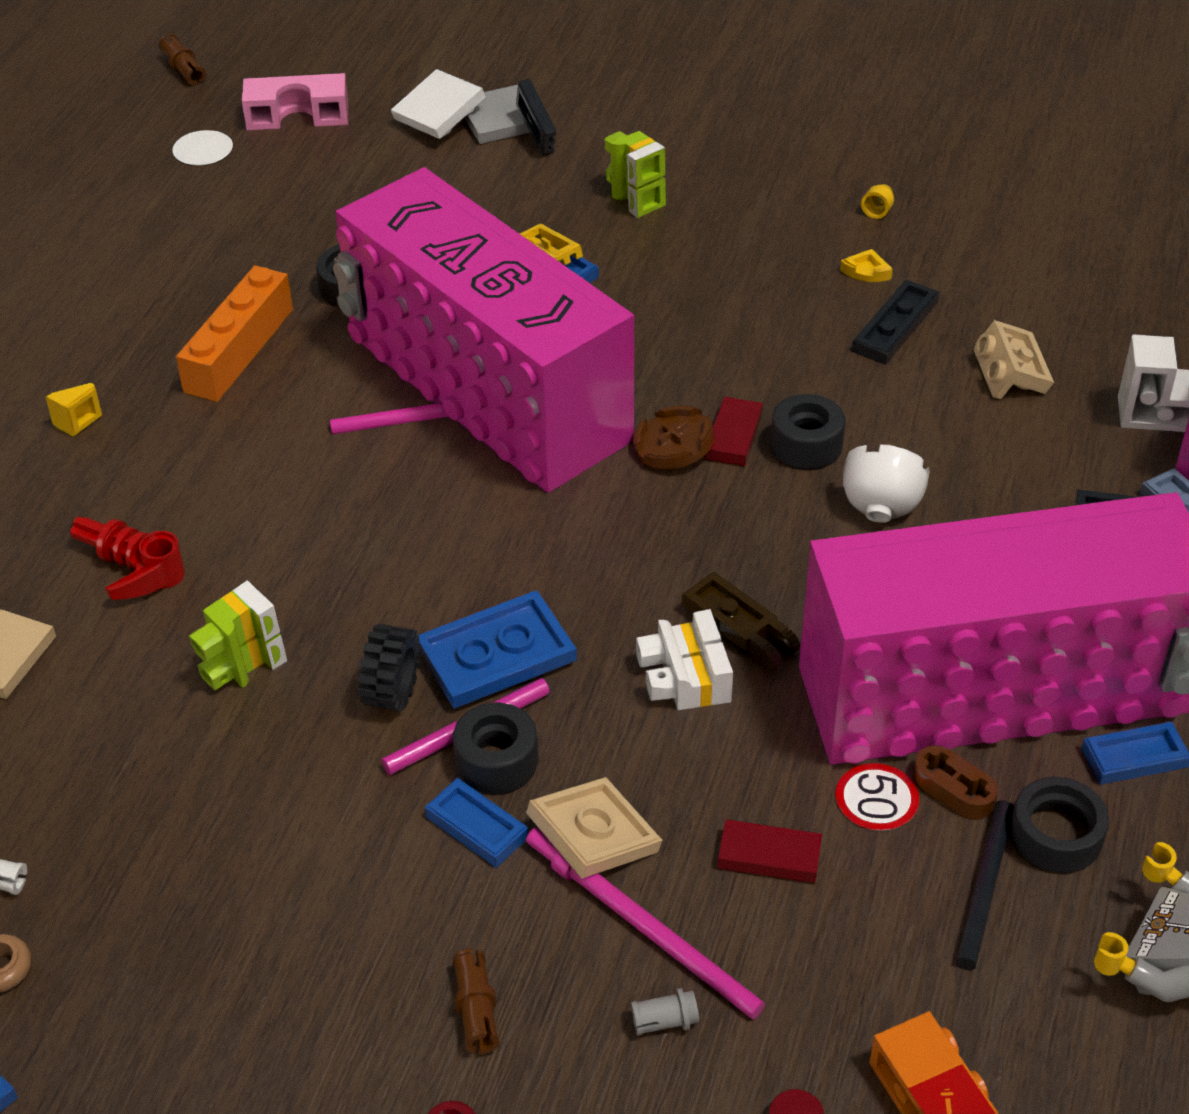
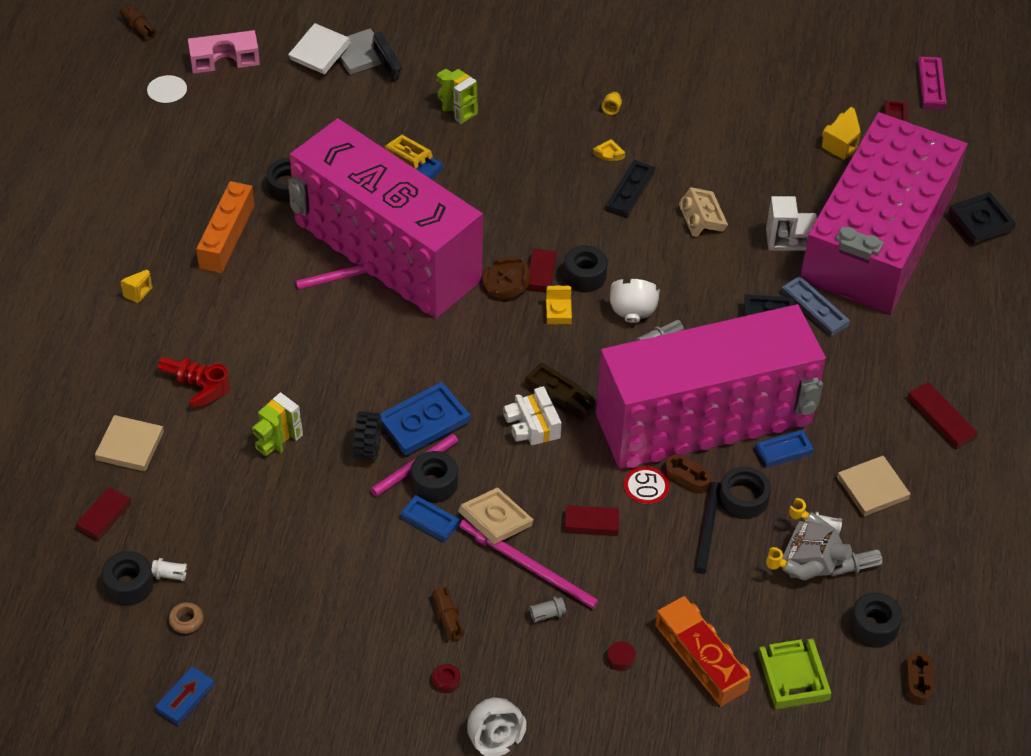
camera: 10 degrees left, 5 degrees up
(755, 484) = (558, 305): none -> yellow bracket

